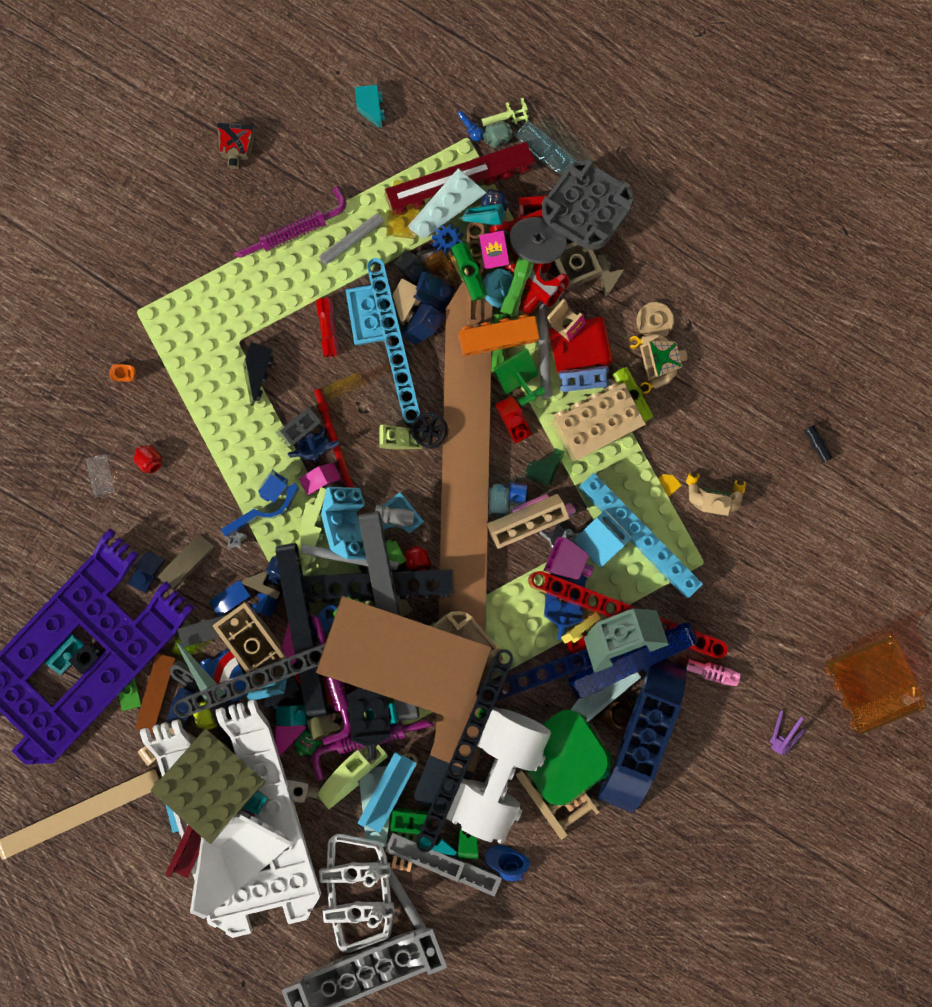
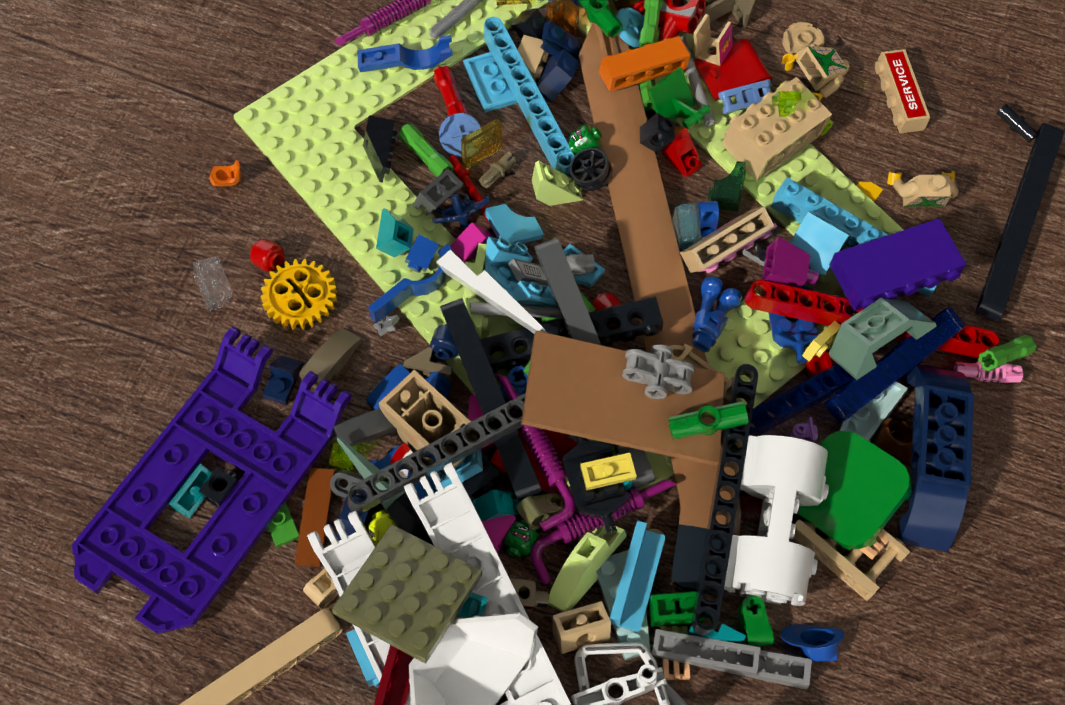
camera: 10 degrees left, 20 degrees down
(183, 491) = (281, 305): none -> yellow gear
(254, 460) = (394, 234): none -> teal slope
(288, 368) = (423, 149): none -> bright green axle
(292, 281) = (397, 55): none -> blue piece
(319, 543) = (489, 290): none -> white slope
(327, 369) = (454, 129): none -> medium blue tile
(337, 821) = (581, 627): none -> tan brick
(350, 520) = (527, 272): none -> tile
(353, 409) = (497, 170): none -> dark tan axle
(354, 469) = (513, 226): none -> medium azure tile
(378, 714) = (608, 471): none -> light yellow plate
(431, 400) = (585, 138): none -> green head
(433, 645) = (658, 371): none -> light grey axle
(448, 694) = (724, 417): none -> green piece
(493, 408) = (657, 133): none -> black brick
(493, 595) = (710, 324): none -> blue piece
(543, 705) = (805, 431): none -> medium lavender hinge
(604, 413) = (786, 101): none -> clear neon green tile
(658, 579) = (897, 264): none -> dark purple brick
(718, 668) = (1000, 355): none -> bright green axle
(725, 392) = (902, 91): none -> brick
(788, 539) = (1019, 222): none -> black beam

